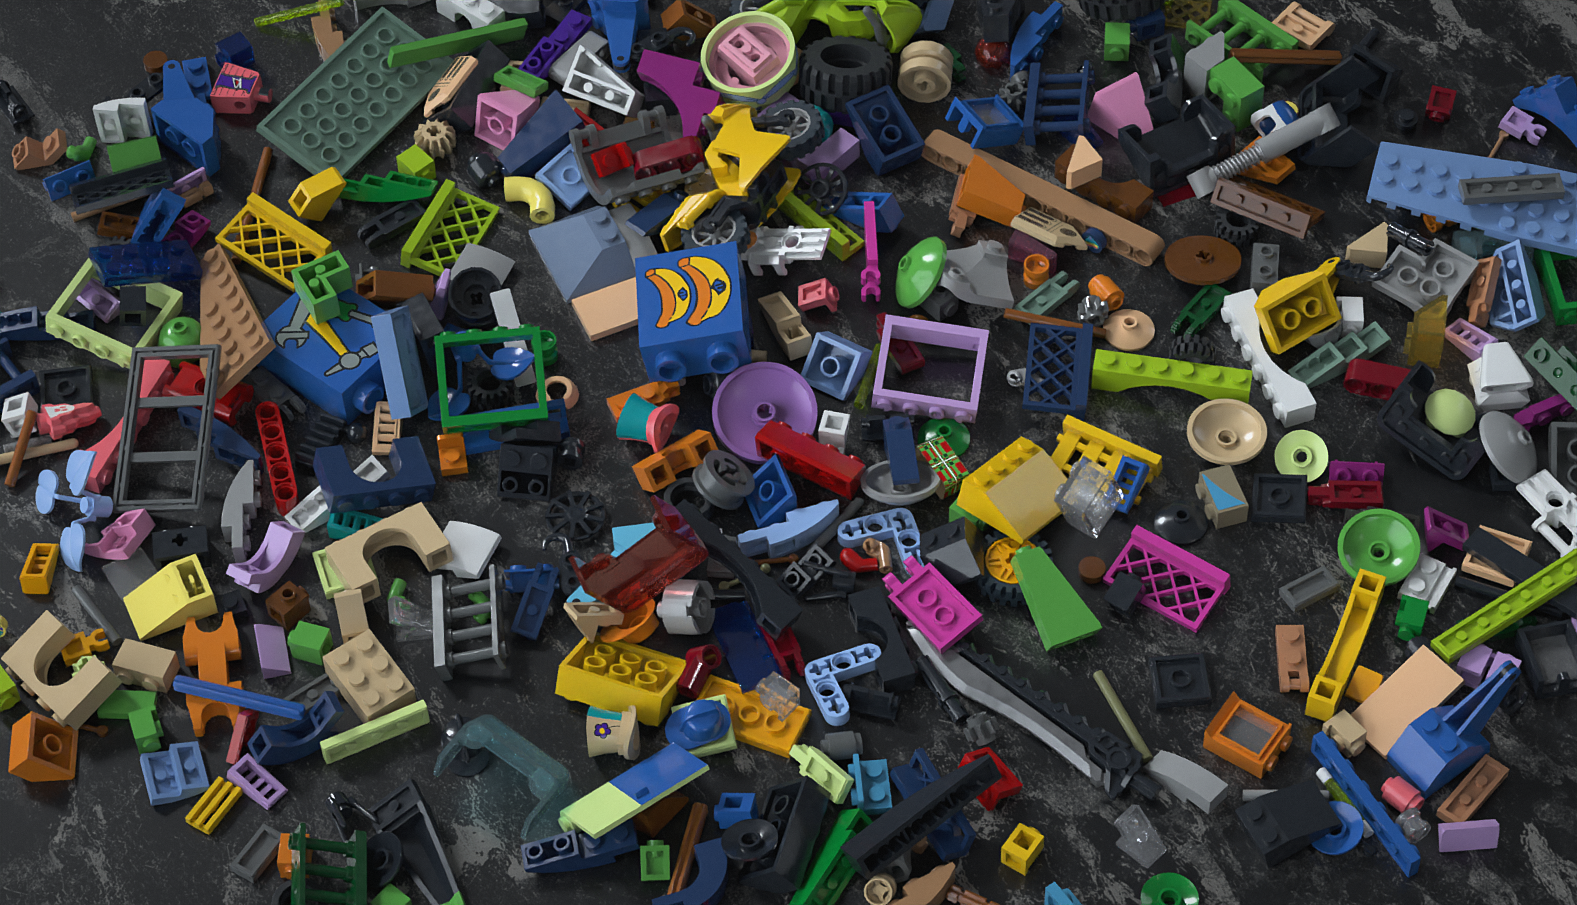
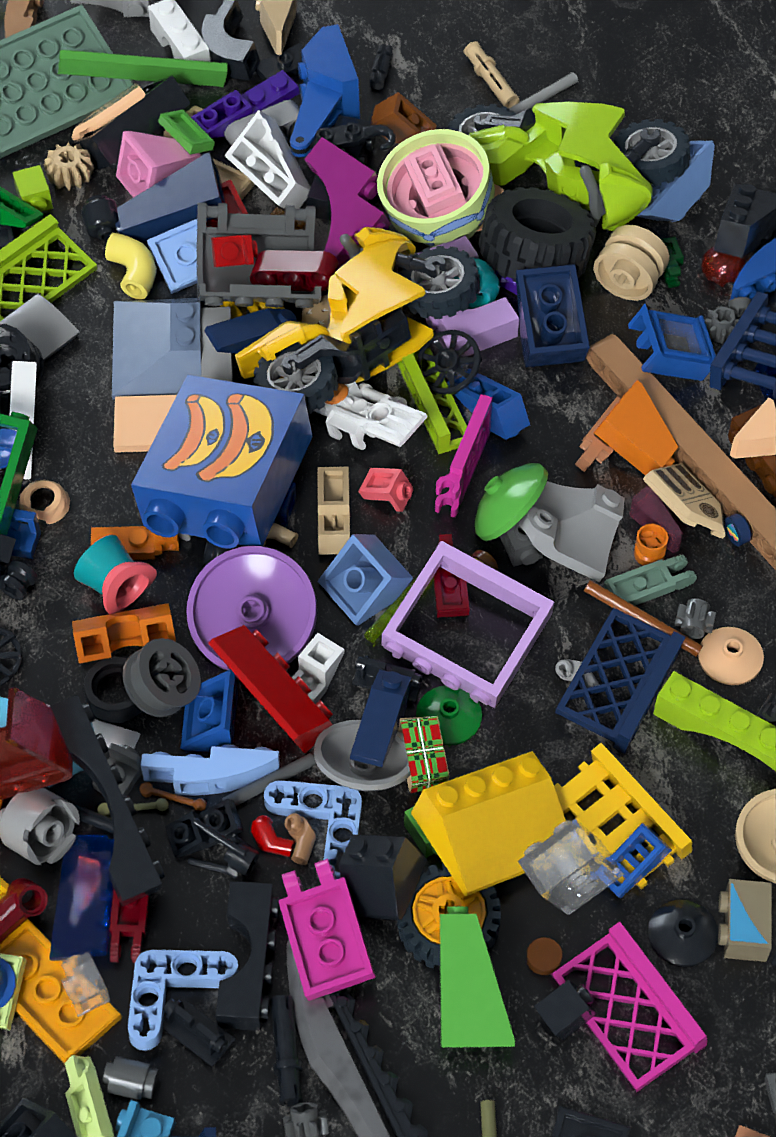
camera: 20 degrees right, 5 degrees up
(549, 347) = (55, 443): green wheel -> none
(1107, 291) = (723, 599): orange brick -> none

